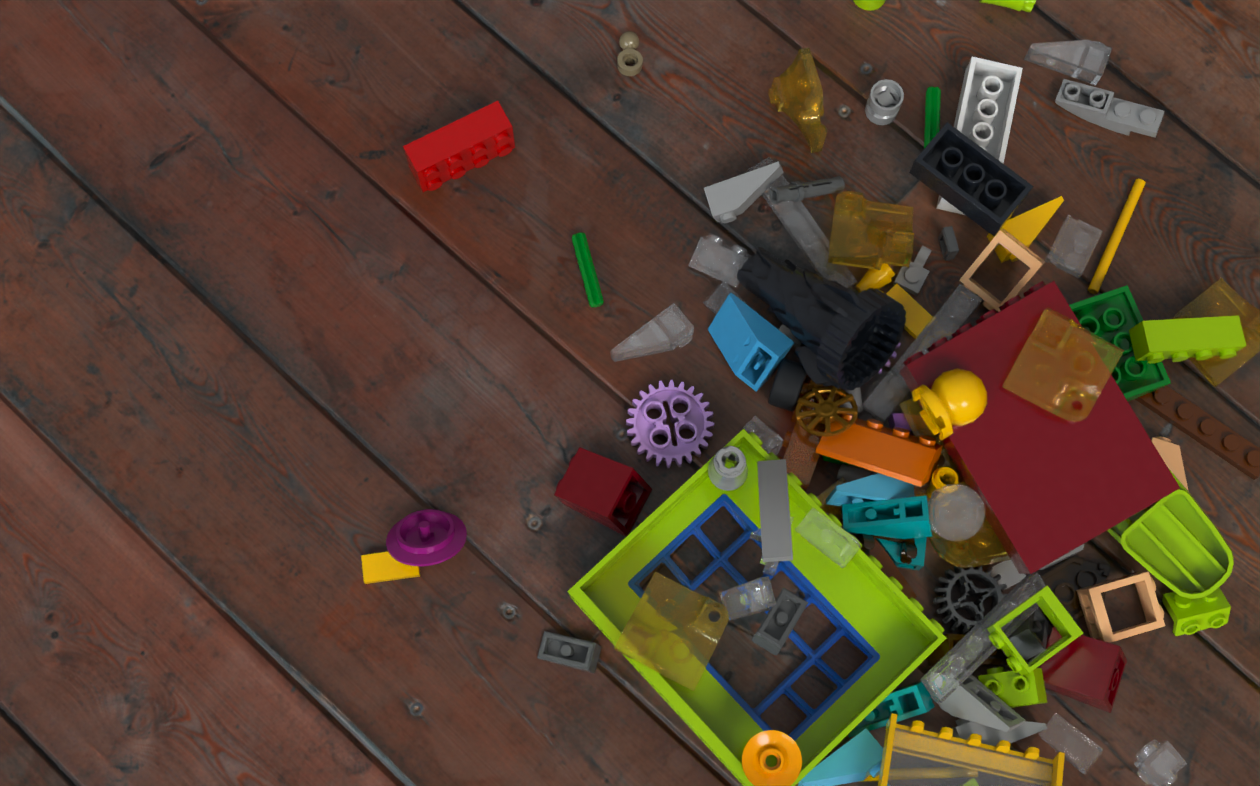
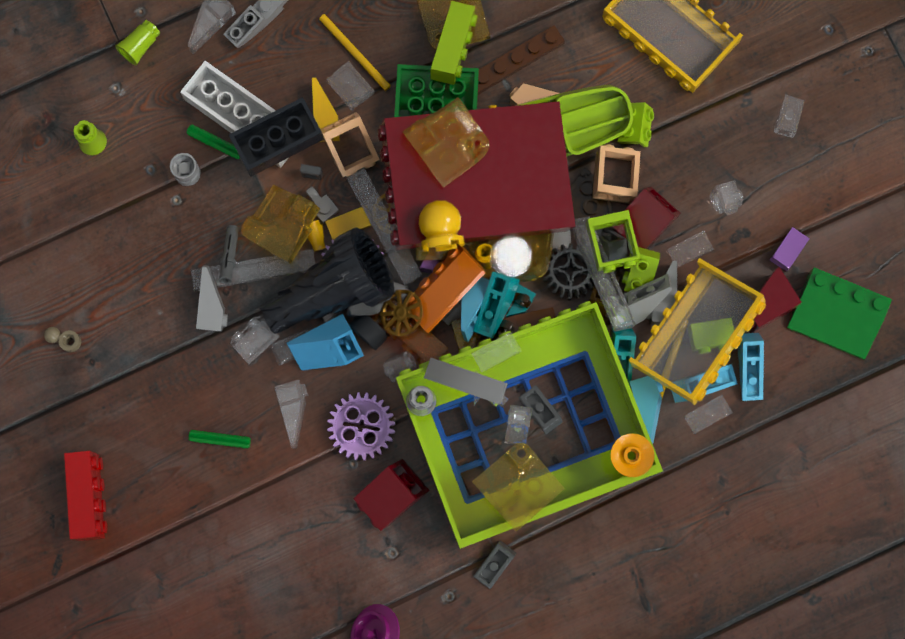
camera: 65 degrees left, 5 degrees up
(801, 98) = (156, 227): clear yellow slope -> none

